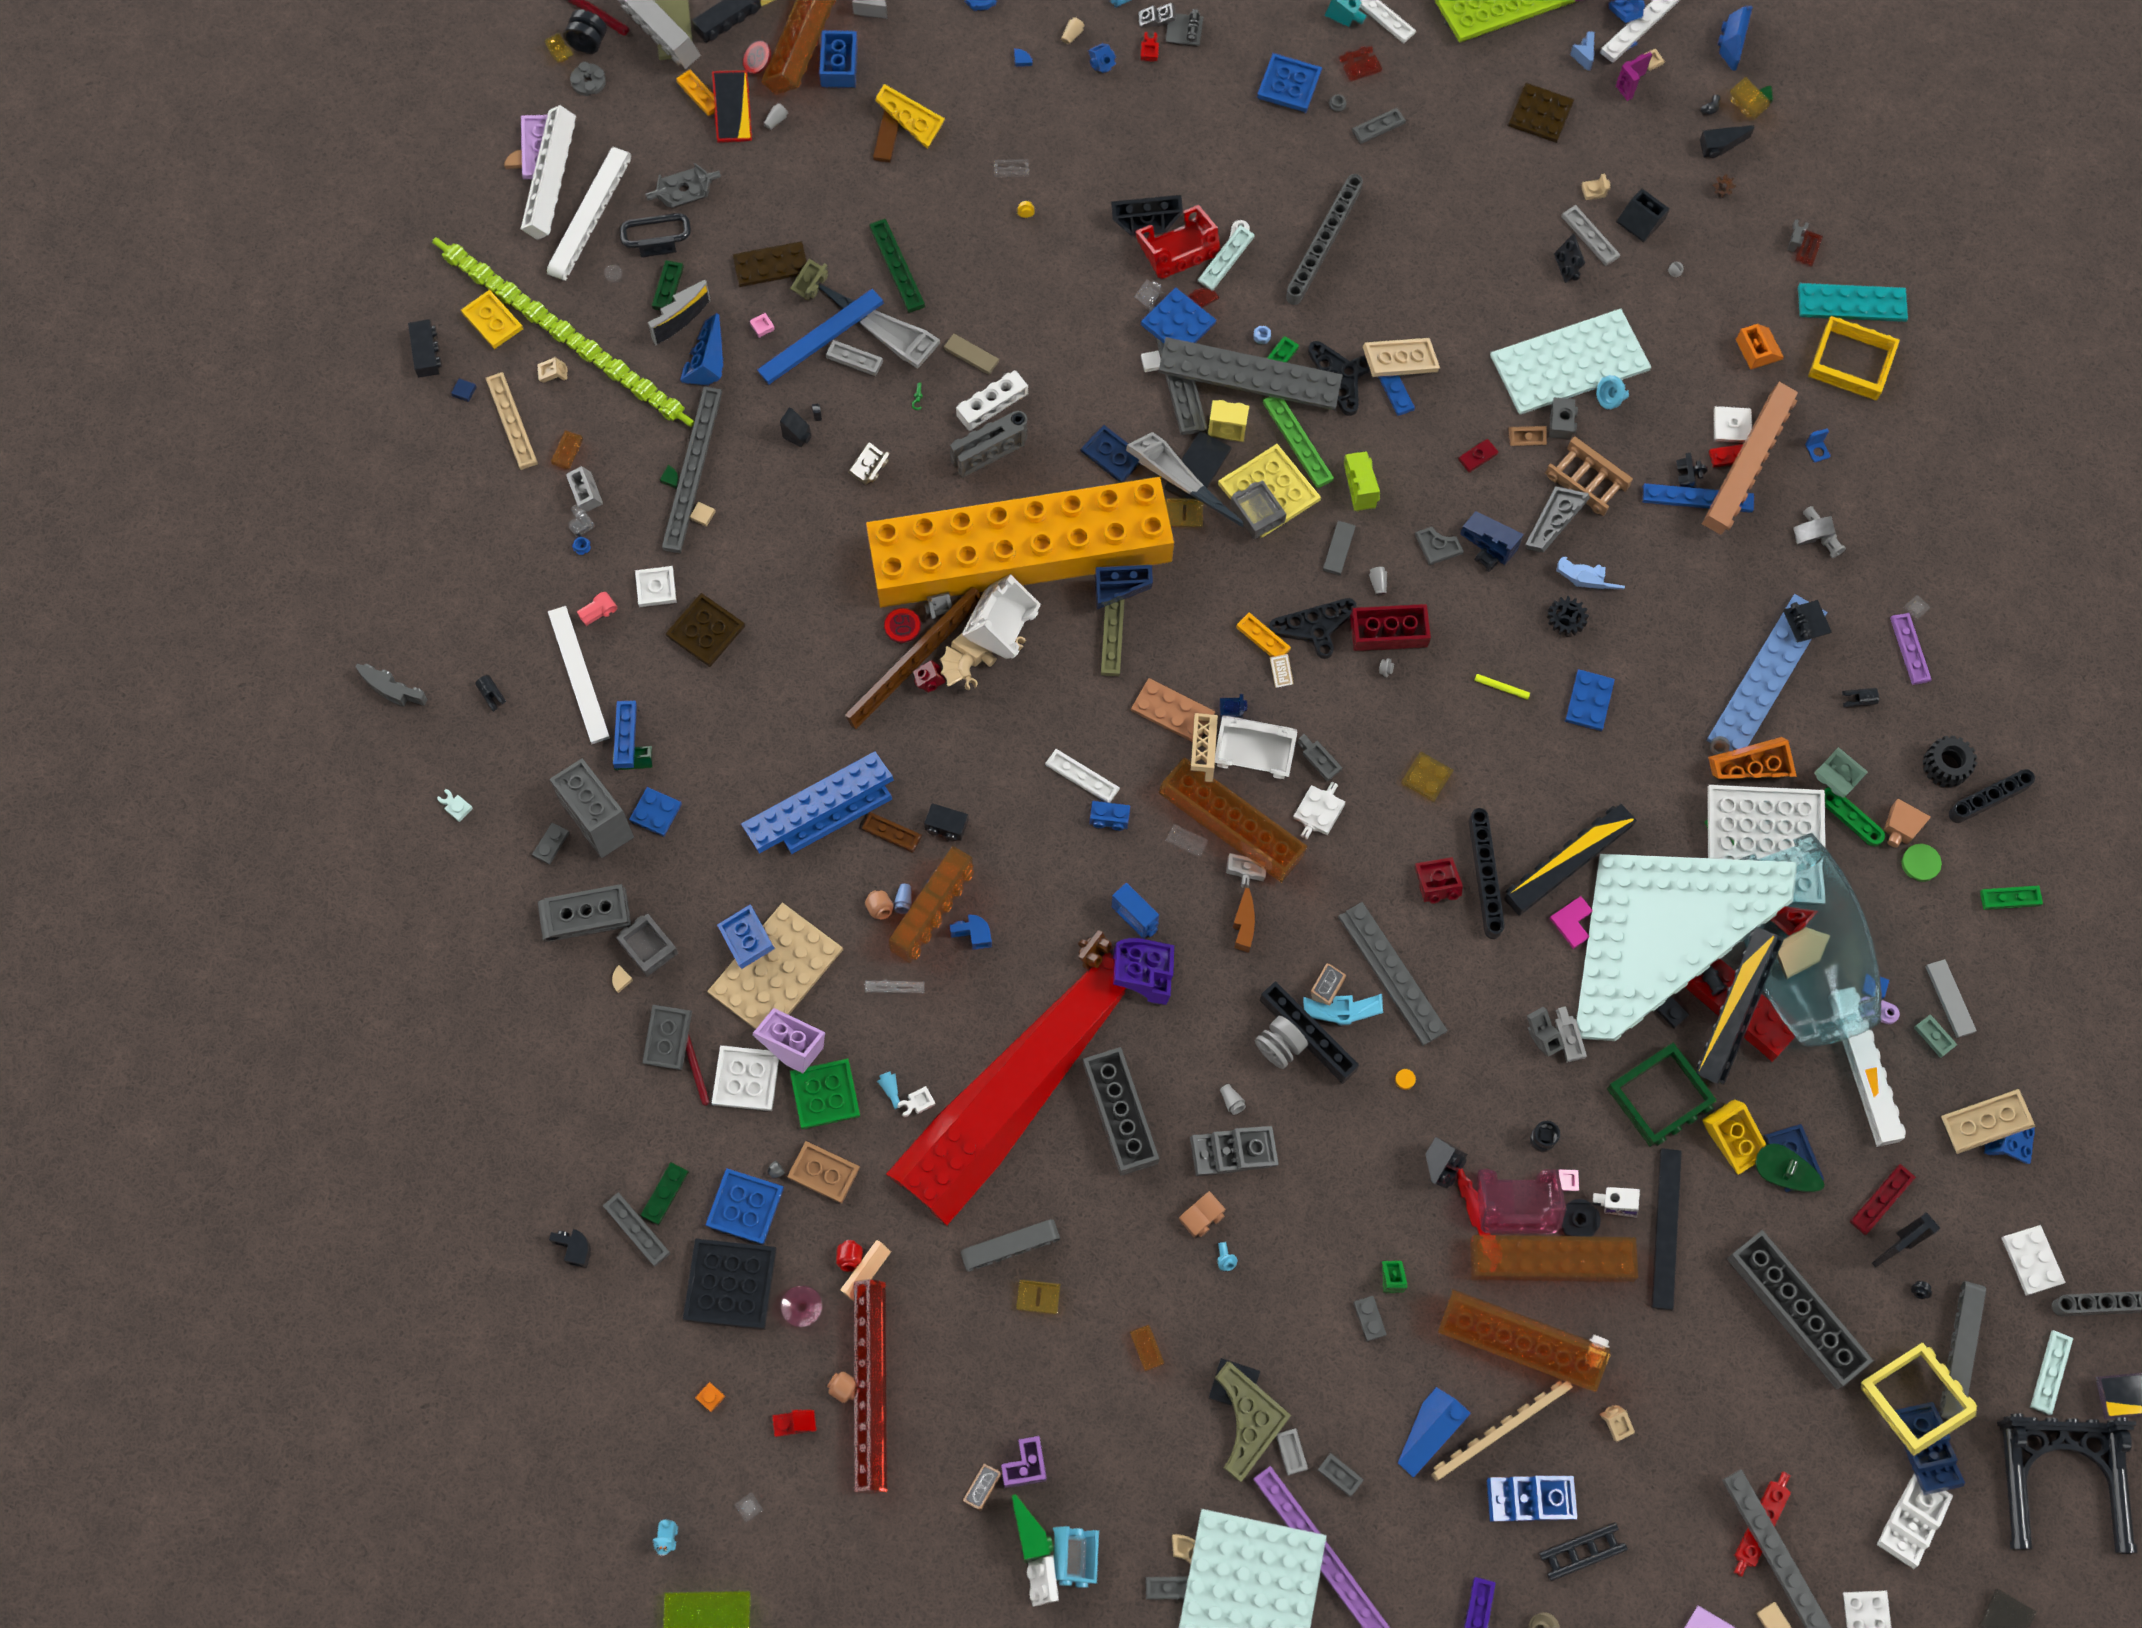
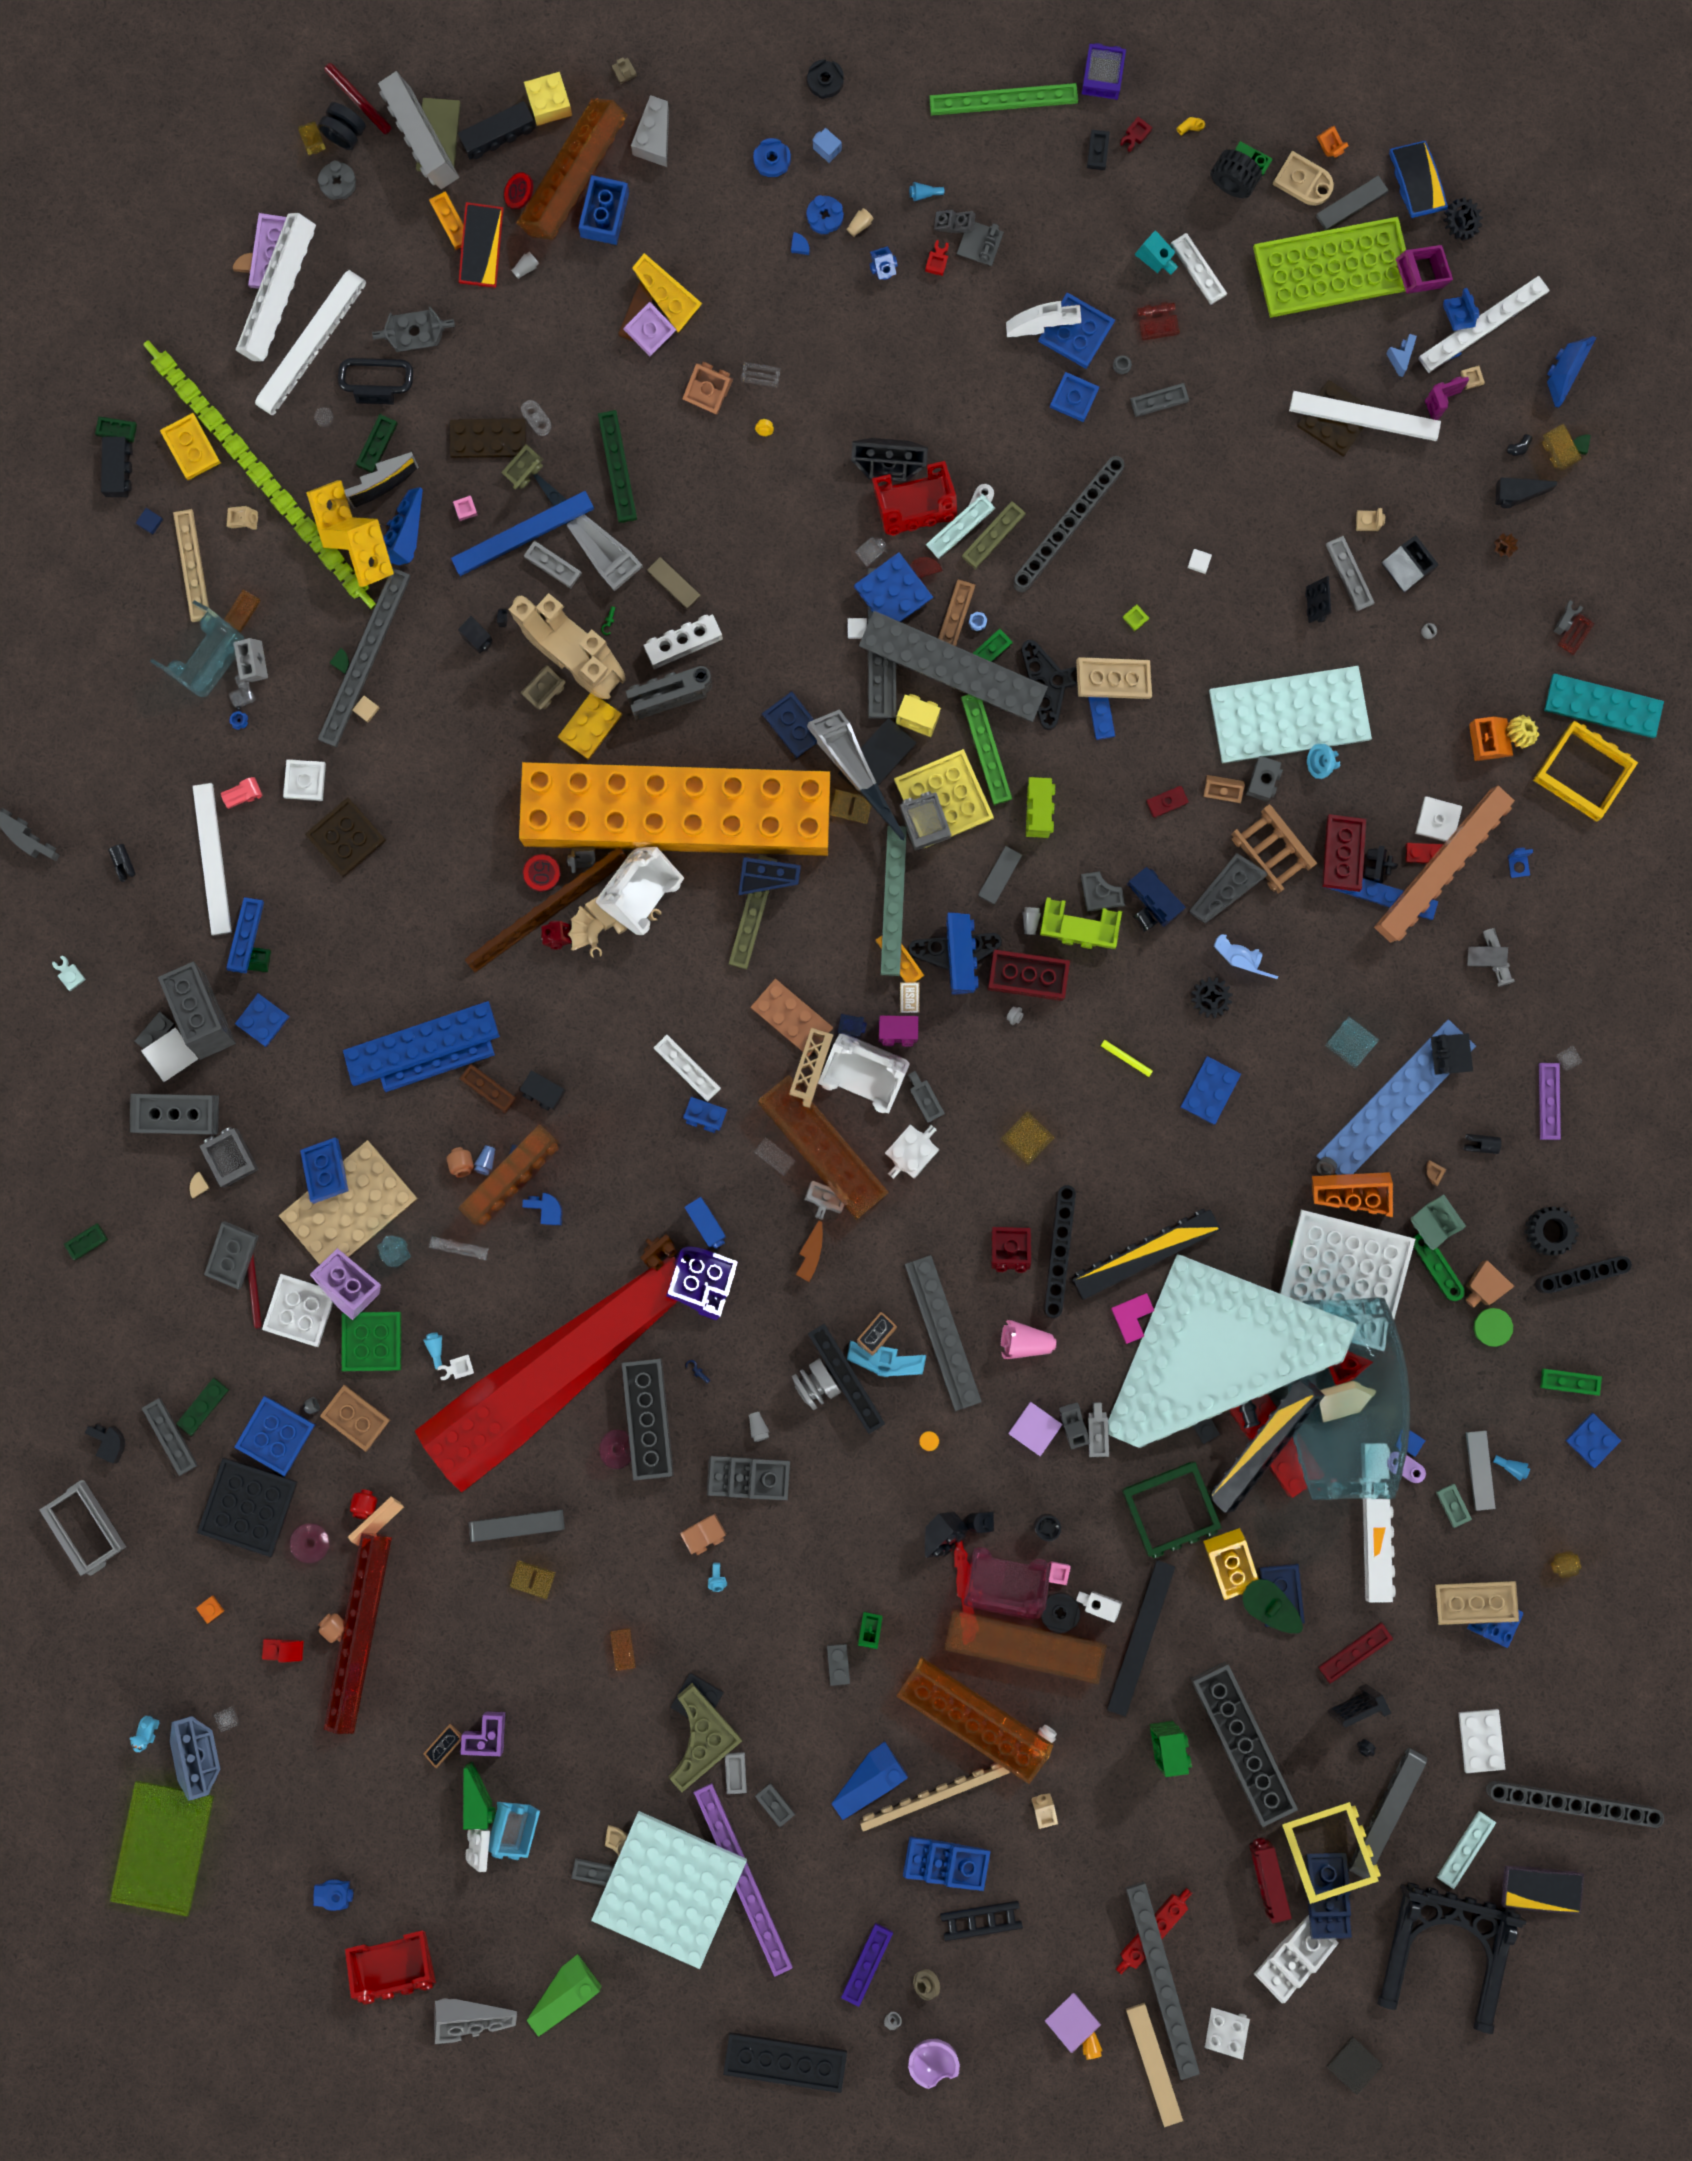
camera: 10 degrees right, 15 degrees up
(418, 314) = (115, 428): none -> dark green plate
(516, 1054) = (85, 1241): none -> dark green plate
(544, 496) = (209, 659): none -> clear light blue windscreen
(569, 859) = (169, 1055): none -> white slope
(584, 1372) = (100, 1518): none -> light grey piece
(673, 359) = (343, 531): none -> yellow bracket
(721, 1550) = (194, 1757): none -> sand blue wedge
(813, 239) = (536, 418): none -> clear plate
(830, 1000) = (393, 1251): none -> clear light blue brick
(880, 414) = (568, 644): none -> tan animal
(901, 147) = (649, 329): none -> lavender plate
(919, 489) = (589, 726): none -> yellow plate
(966, 185) = (707, 387): none -> nougat plate
(1039, 22) = (823, 204): none -> blue plate
(1095, 1148) = (622, 1453): none -> clear pink dish
(1159, 1059) = (698, 1372): none -> dark blue hand
(1240, 328) = (956, 612): none -> medium nougat tile
(1245, 588) = (893, 903): none -> sand green plate
(1250, 78) = (1036, 318): none -> white slope
(1258, 261) = (993, 535): none -> olive plate
(1279, 698) = (898, 1030): none -> magenta brick
(1301, 135) = (1074, 397): none -> blue plate
(1321, 618) = (961, 954): none -> blue slope
(1406, 306) = (1135, 617): none -> lime tile
(1427, 579) = (1080, 930): none -> lime bracket
(1451, 249) = (1199, 561): none -> white tile
(1474, 962) = (1025, 1341): none -> bright pink cone
(1476, 1146) = (980, 1522): none -> black plate
(1507, 1045) = (1035, 1429): none -> lavender tile
(1566, 103) = (1365, 416): none -> white tile
(1655, 466) = (1344, 853): none -> dark red plate
(1710, 630) = (1352, 1042): none -> clear light blue hinge
(1728, 1321) = (1170, 1749): none -> green brick
(1786, 334) = (1522, 731): none -> light yellow gear
(1823, 732) = (1434, 1172): none -> medium nougat tile
(1866, 1440) = (1270, 1880): none -> dark red door
(1985, 989) = (1516, 1468): none -> dark azure cone
(2049, 948) = (1593, 1440): none -> blue plate
(2062, 1069) = (1566, 1564): none -> clear yellow head

